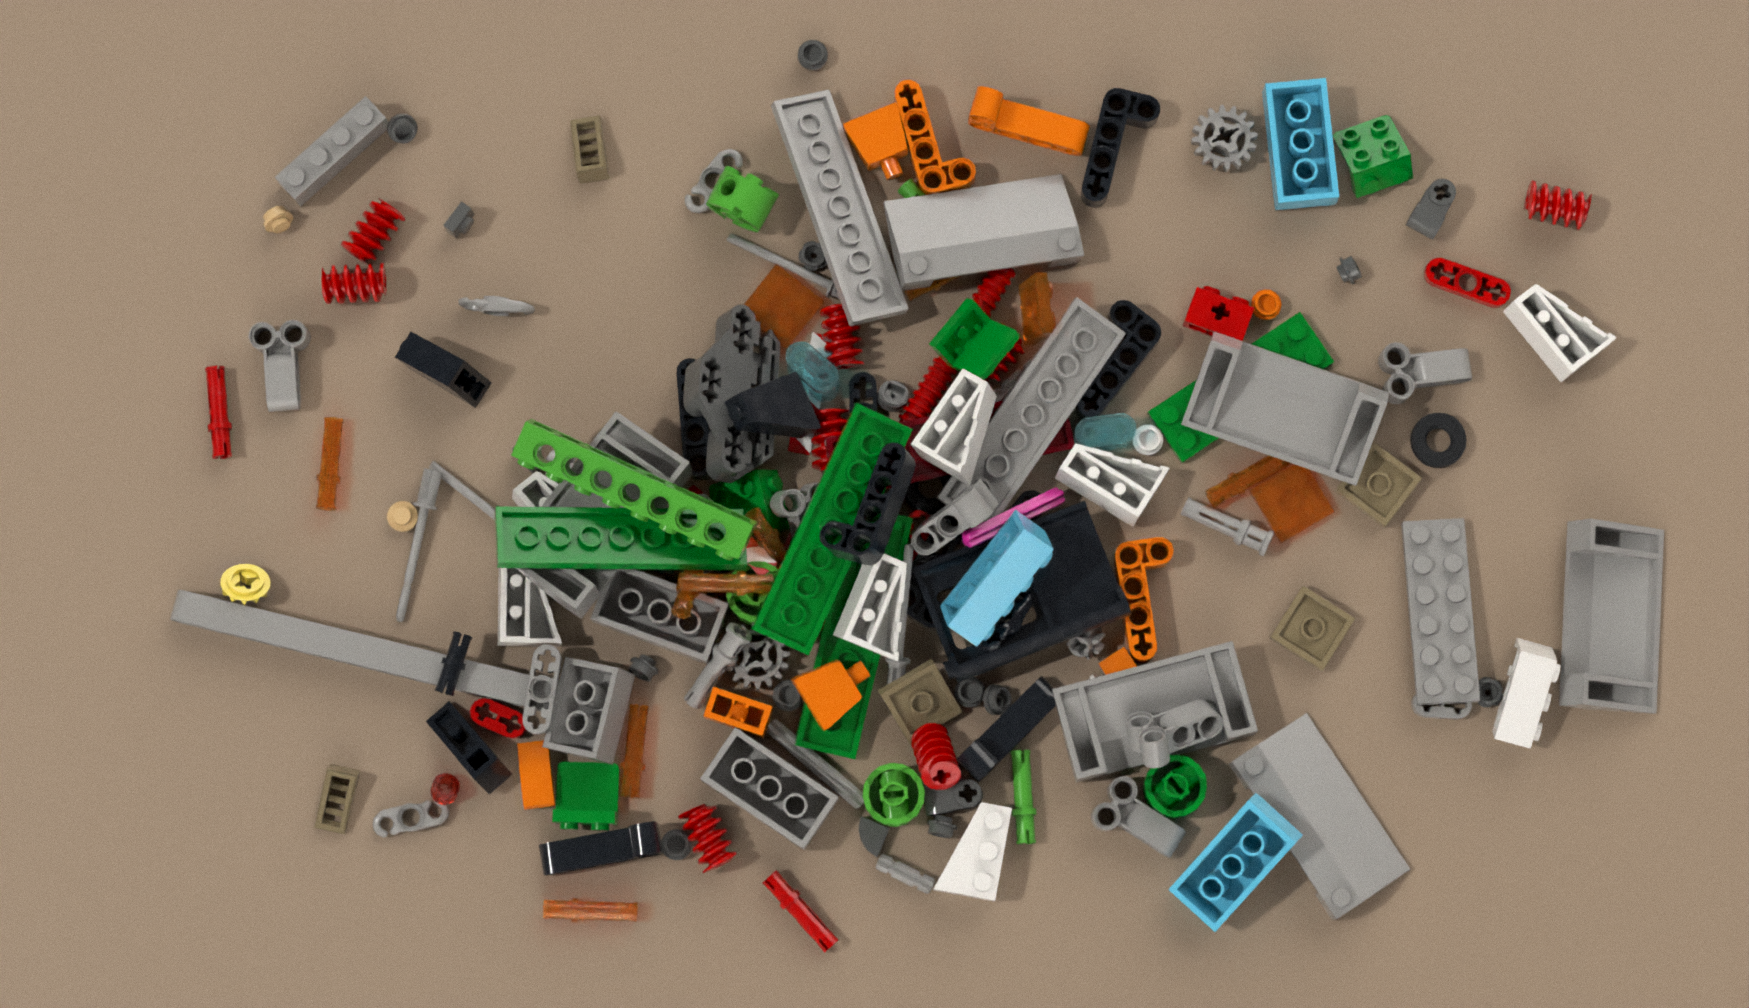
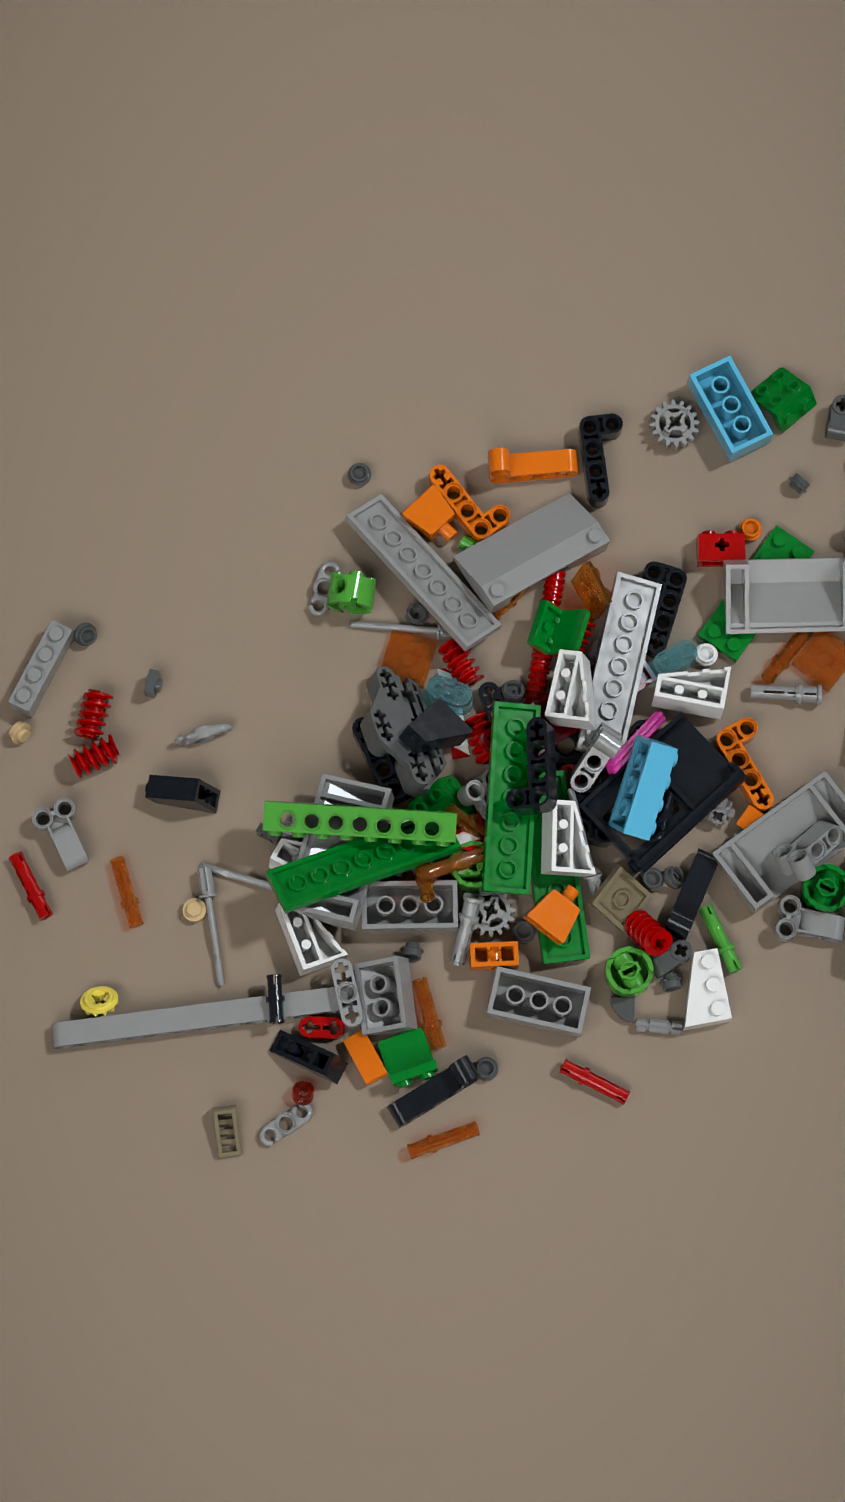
camera: 25 degrees left, 5 degrees down
(590, 168) = (233, 612): dark tan slope -> none
(707, 836) = (507, 1053): red piece -> none
(816, 764) = (563, 972): light grey axle -> none

